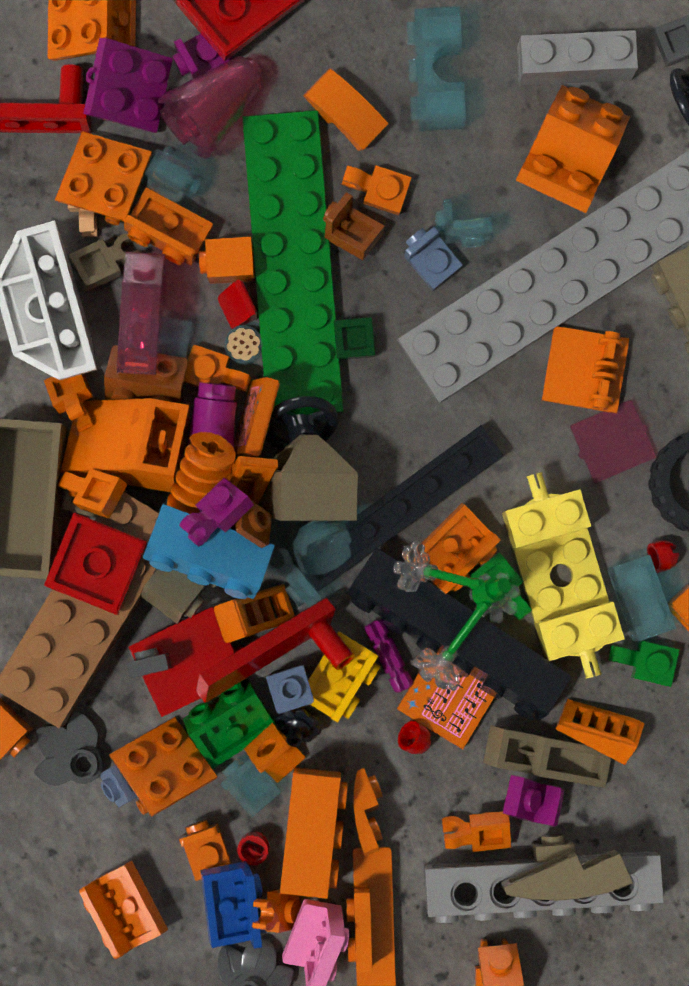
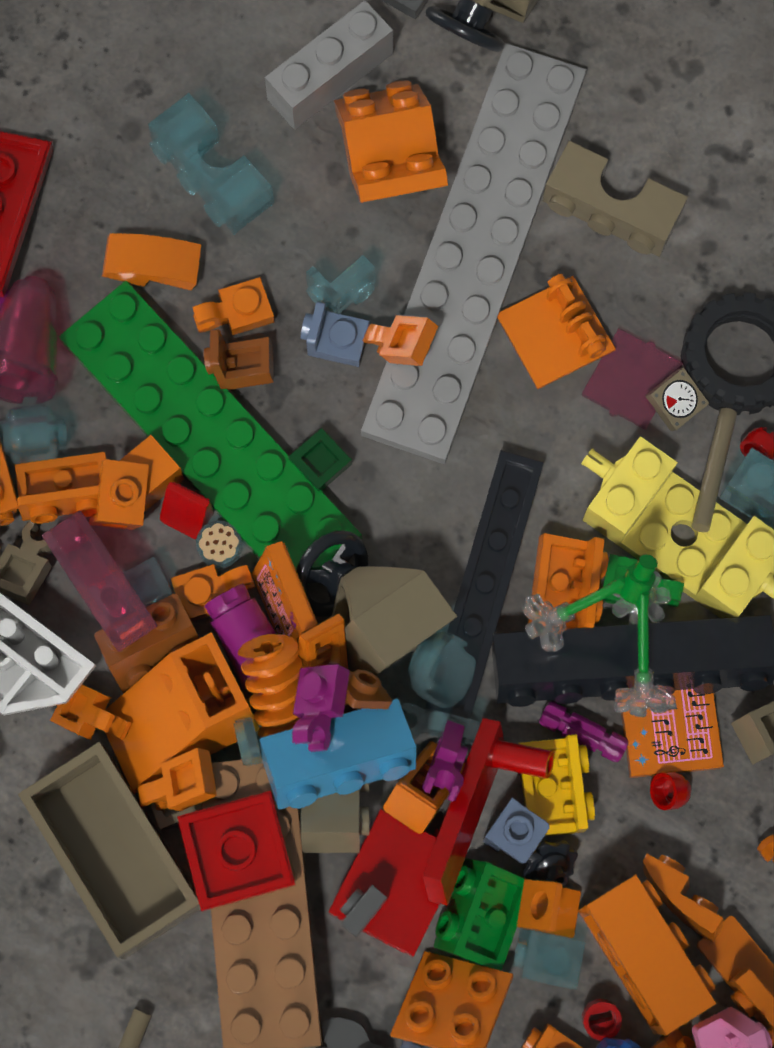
camera: 35 degrees left, 10 degrees down
(156, 497) = (247, 742): none -> clear light blue tile
(200, 264) = (121, 495): none -> orange bracket
(279, 608) = (447, 761): none -> magenta plate
(472, 300) = (404, 341): none -> orange plate
(616, 548) = (714, 470): none -> dark tan bar
(630, 480) = (677, 399): none -> tile

